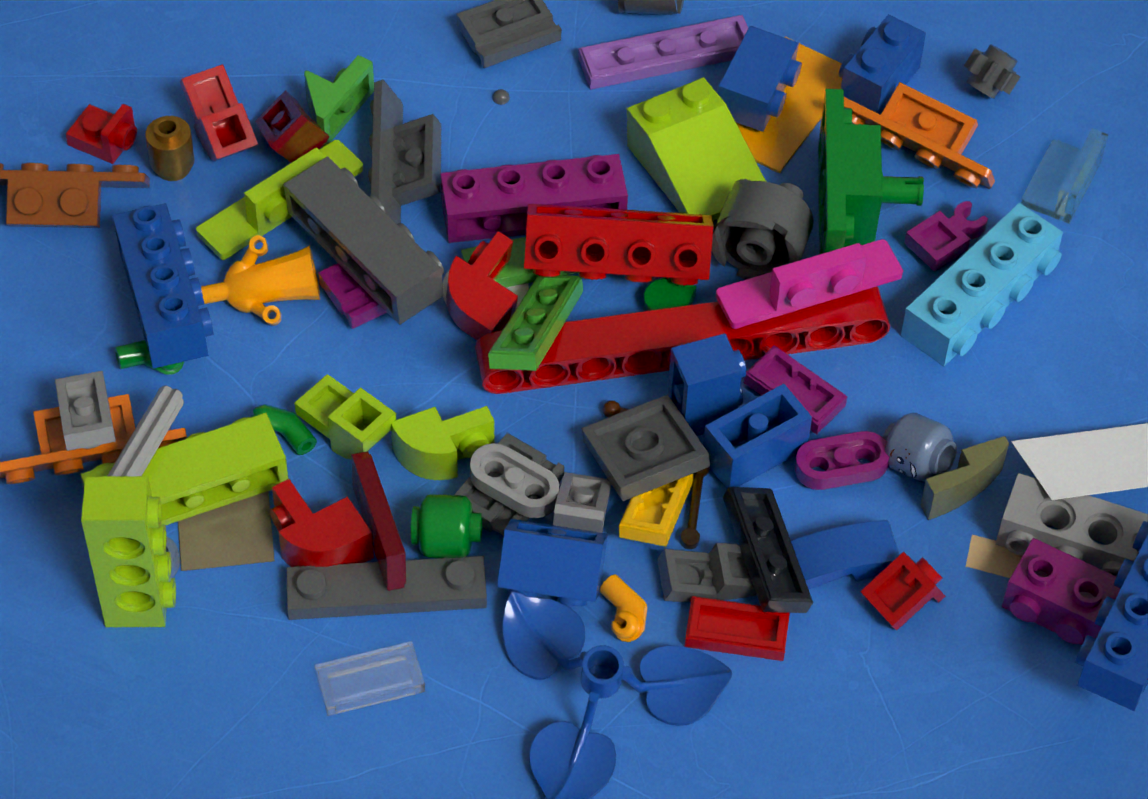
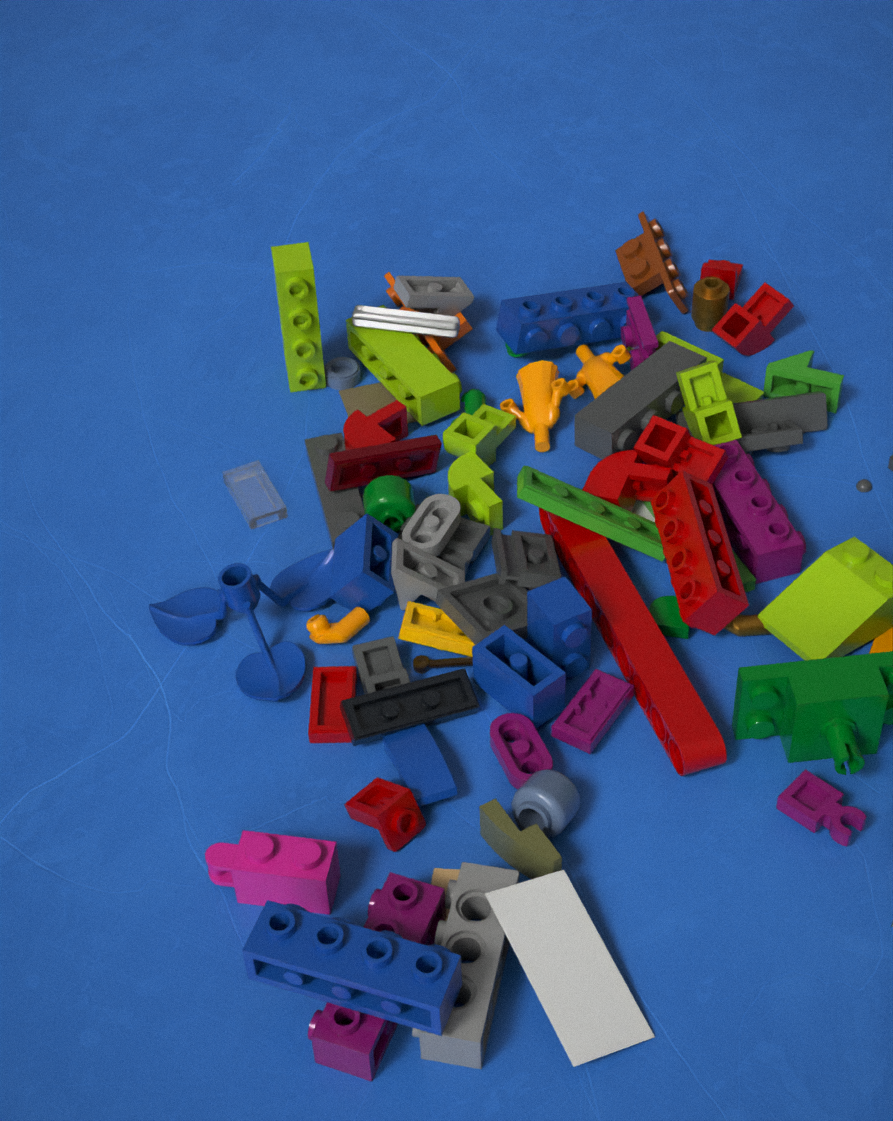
camera: 85 degrees right, 10 degrees down
(236, 217) = (638, 332): none -> magenta plate
(287, 350) = (541, 400): none -> light orange piece
(290, 128) = (748, 358): dark red slope -> none
(402, 183) = (706, 405): none -> lime brick
(475, 217) = (675, 448): none -> red brick
(571, 406) = (525, 558): none -> dark grey plate
(762, 227) = (752, 639): dark grey brick -> none
(809, 282) = (696, 686): dark pink bracket -> none
(979, 690) = (277, 870): none -> dark pink brick
(982, 285) = (766, 840): medium azure brick -> none

